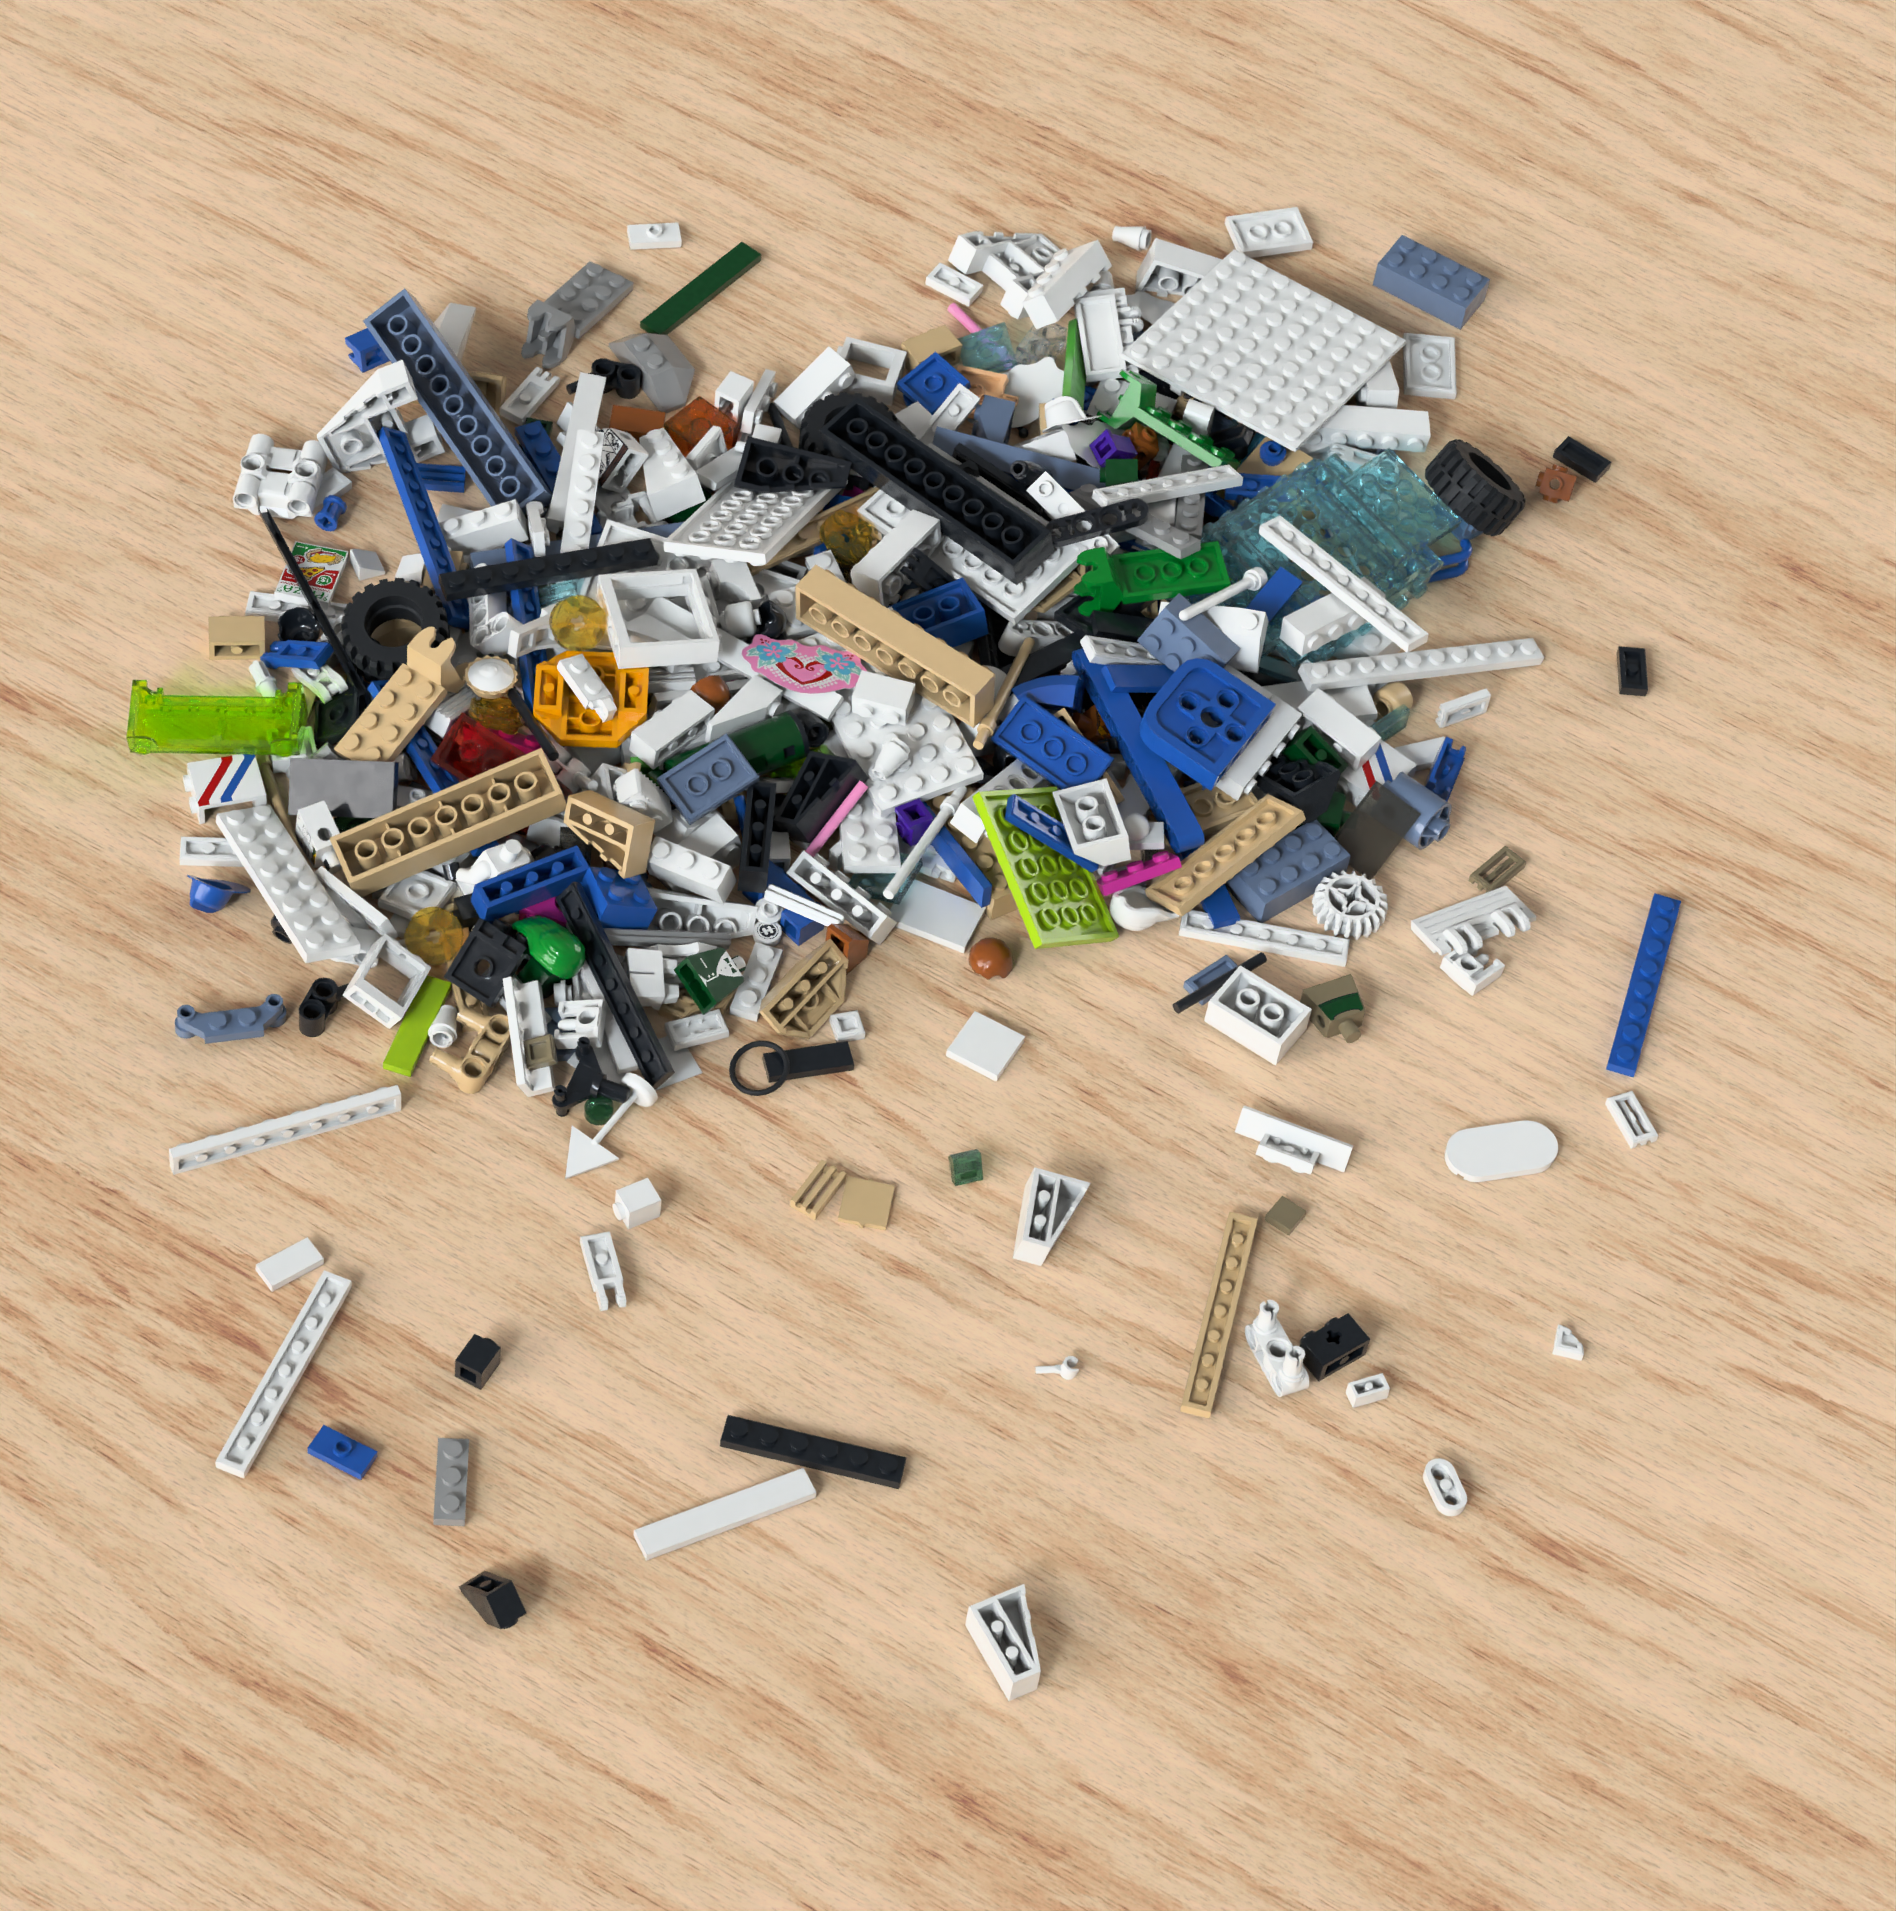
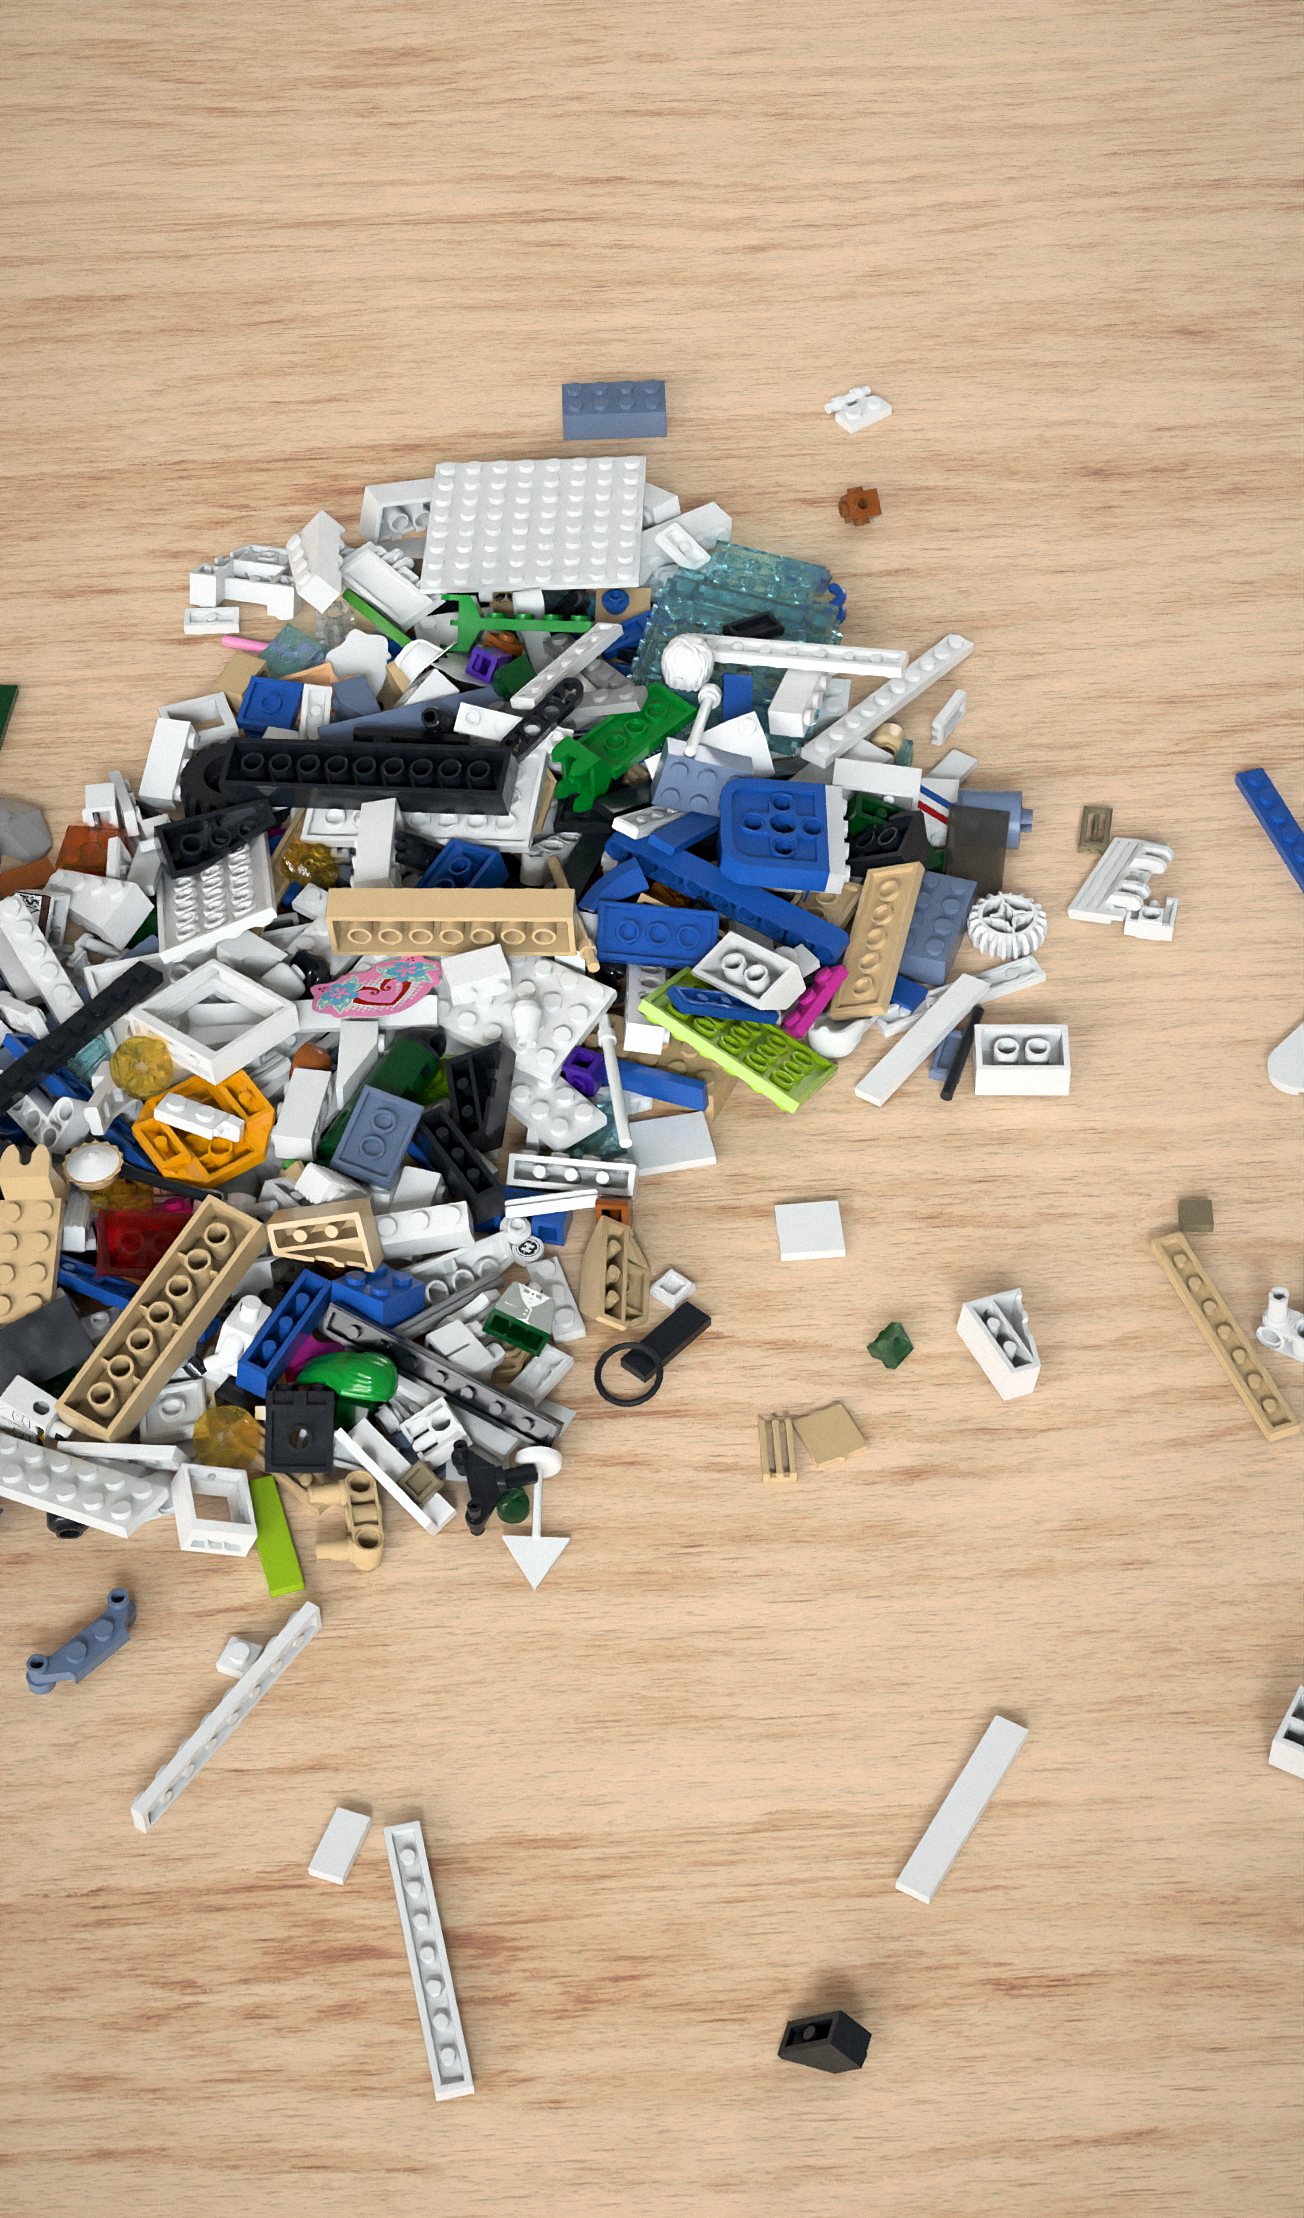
camera: 25 degrees left, 5 degrees down
(317, 1008) = (163, 1576): black beam -> none
(325, 1093) = (238, 1656): none -> white plate
(342, 1452) = (550, 1998): blue plate -> none
(444, 1027) = (302, 1521): white cone -> none
(451, 1482) = (680, 1955): light grey plate -> none
(477, 1361) = (608, 1818): black brick -> none
(603, 1268) = (648, 1650): white hinge -> none
(637, 1203) = (627, 1568): white brick -> none
(813, 1452) = (988, 1694): black plate -> none
(836, 818) = (512, 1116): bright pink bar -> none
(991, 958) = (746, 1151): dark orange hair -> none
(1064, 1370) = (1137, 1471): white hand -> none
(1135, 237) = (334, 504): white cone -> none
(1200, 953) = (921, 1039): none -> white tile
(1255, 541) = (687, 663): none -> white hair
(1269, 232) = (445, 441): white plate -> none
(1291, 1143) = (1146, 1150): white bracket -> none
(1336, 1008) = (1081, 1011): dark tan torso -> none
(1344, 542) = (758, 626): none -> black tile
(1362, 438) = (682, 548): none -> white plate
(1429, 366) = (674, 473): white tile -> none
(1445, 769) = (979, 768): blue hinge -> none
(1475, 487) = (808, 537): black tyre -> none
(1581, 459) = (854, 477): black tile -> none
(1632, 671) = (1052, 615): black plate -> none
(1641, 402) = (863, 411): none -> white plate

